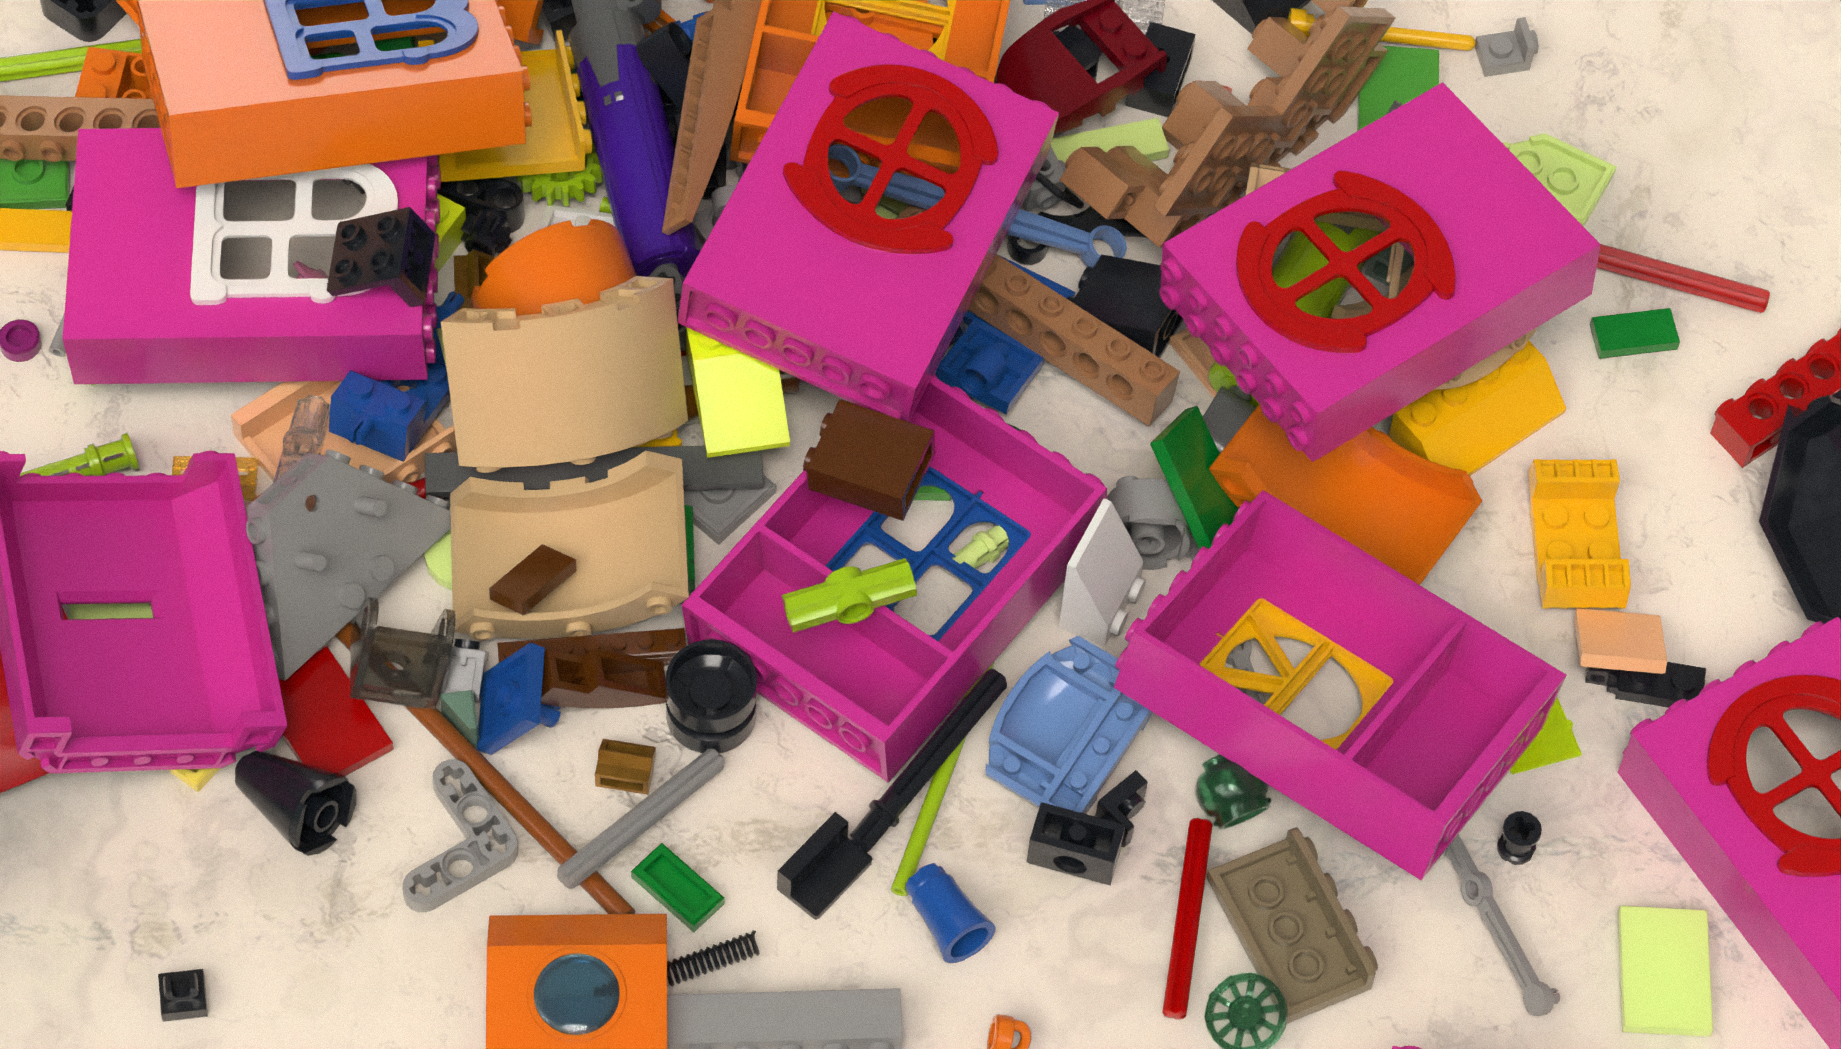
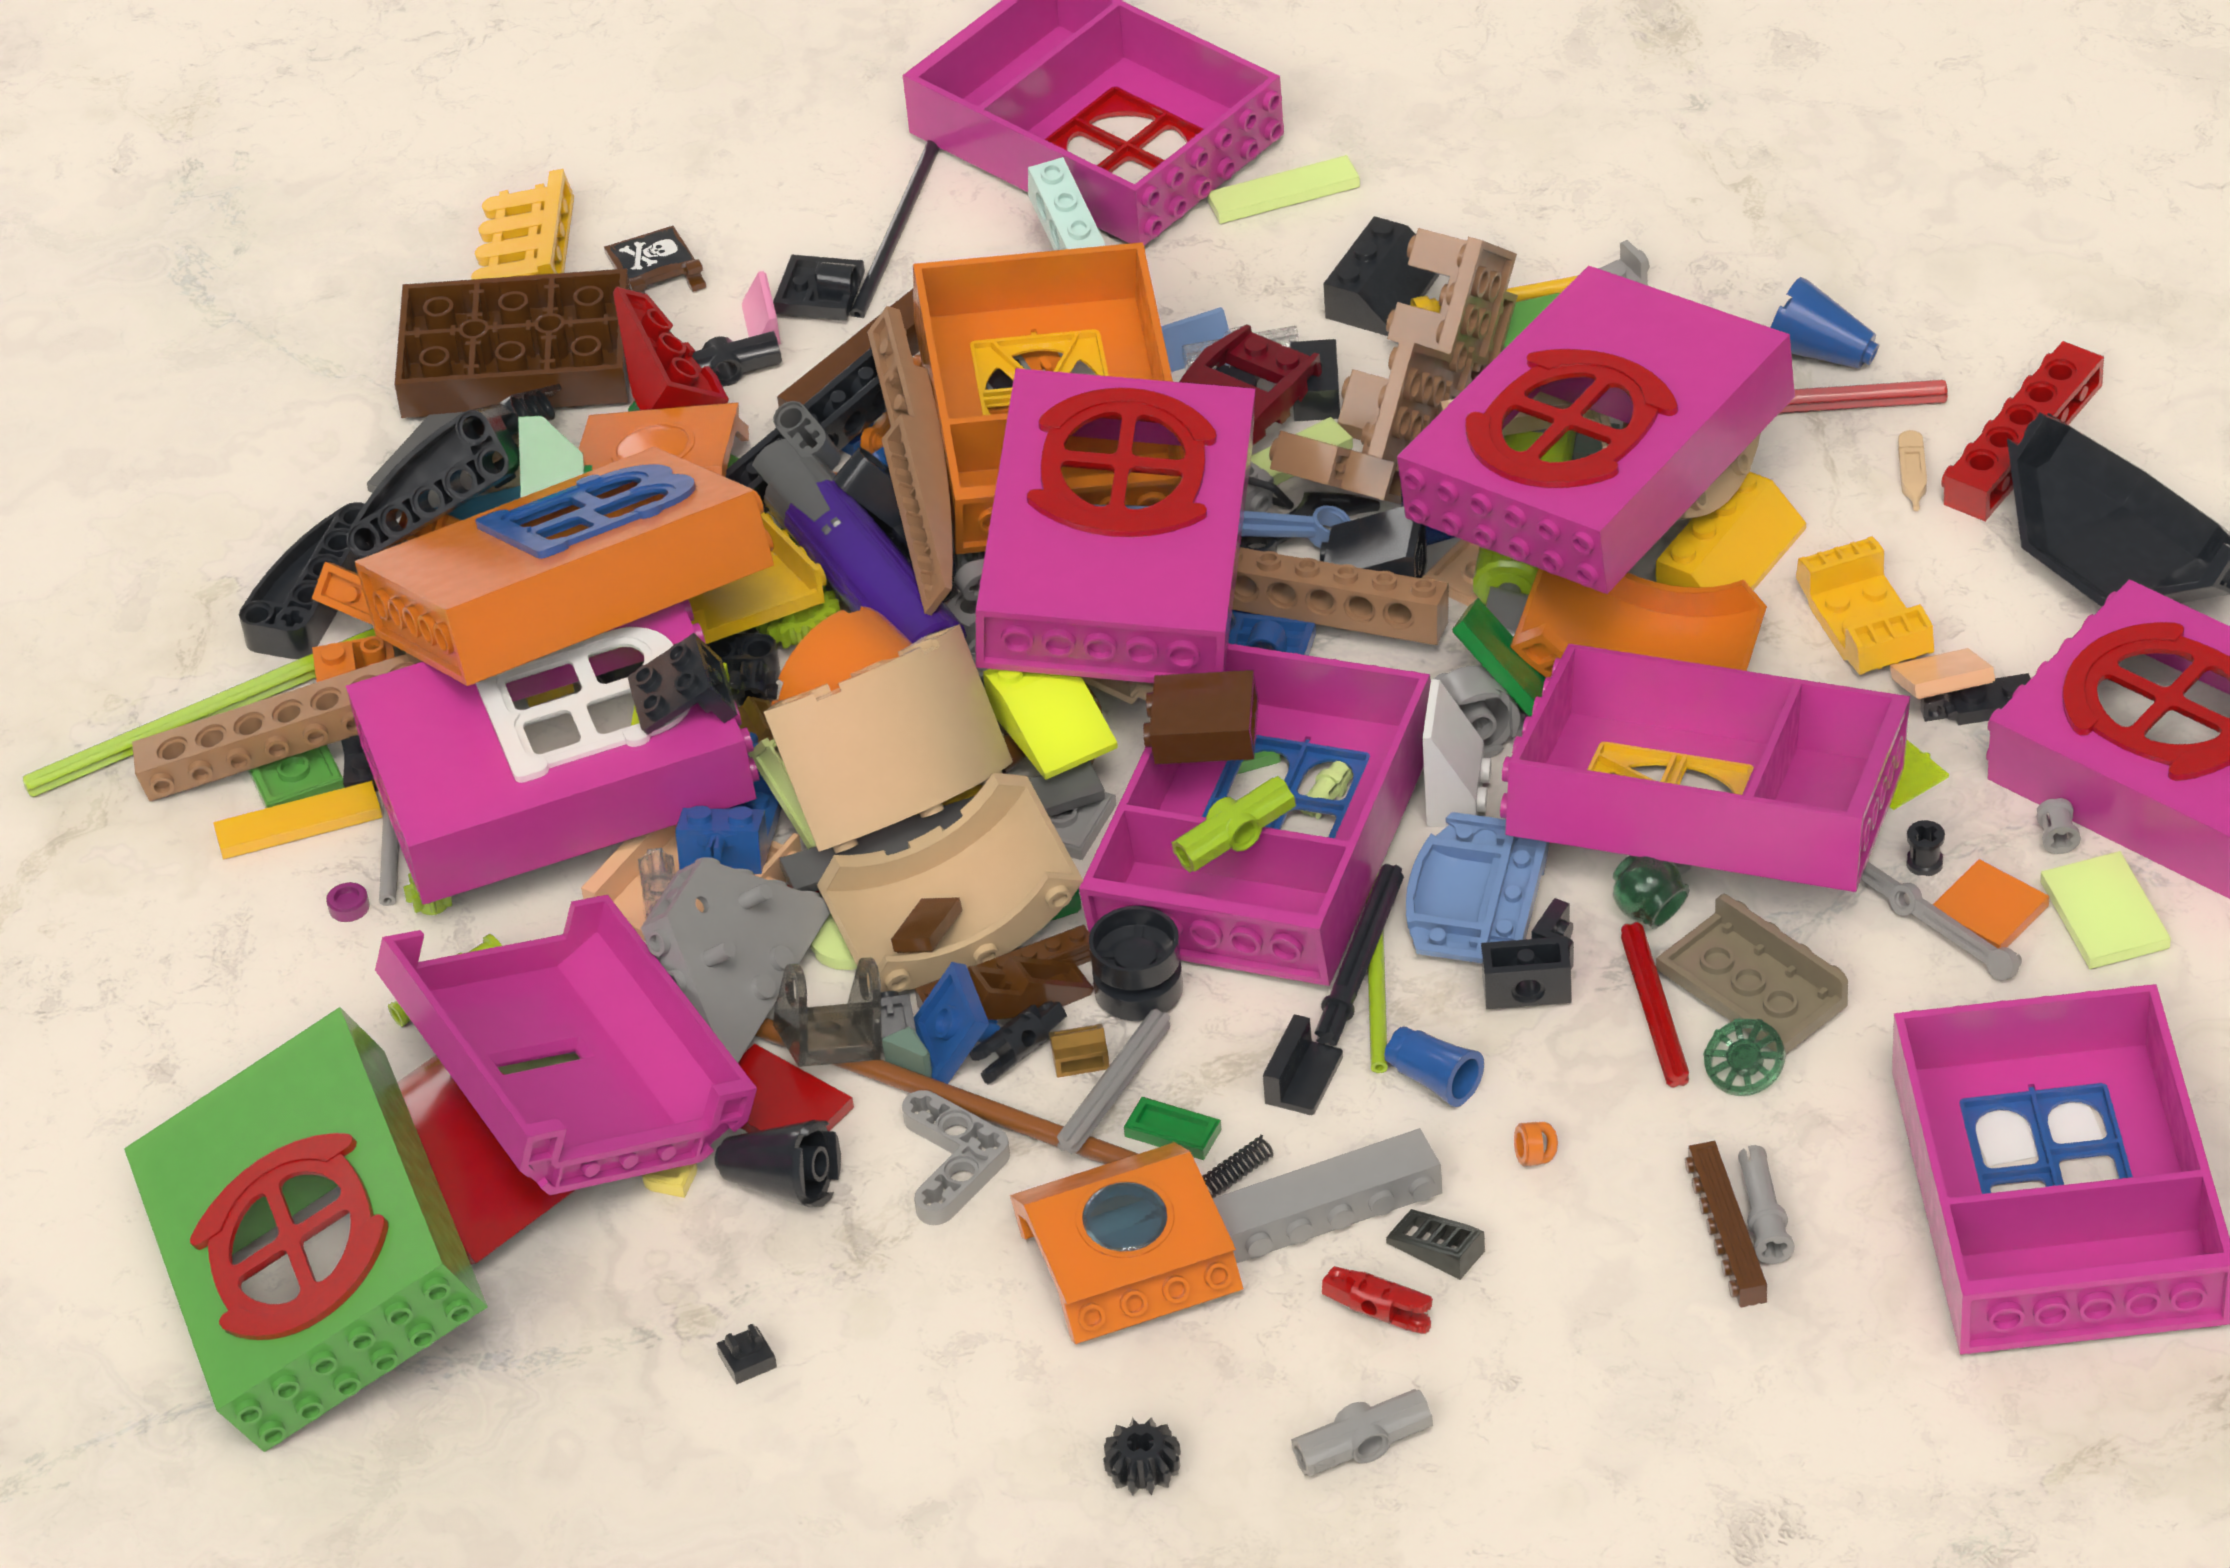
camera: 10 degrees left, 15 degrees down
(572, 734) = (1018, 1038): none -> black hinge
(1556, 925) = (1992, 903): none -> orange tile
(1634, 333) = (1839, 449): green tile -> none
(1658, 859) = (2056, 827): none -> light grey bush
(1672, 190) = (1824, 328): none -> blue cone
(1697, 379) = (1912, 466): none -> tan piece

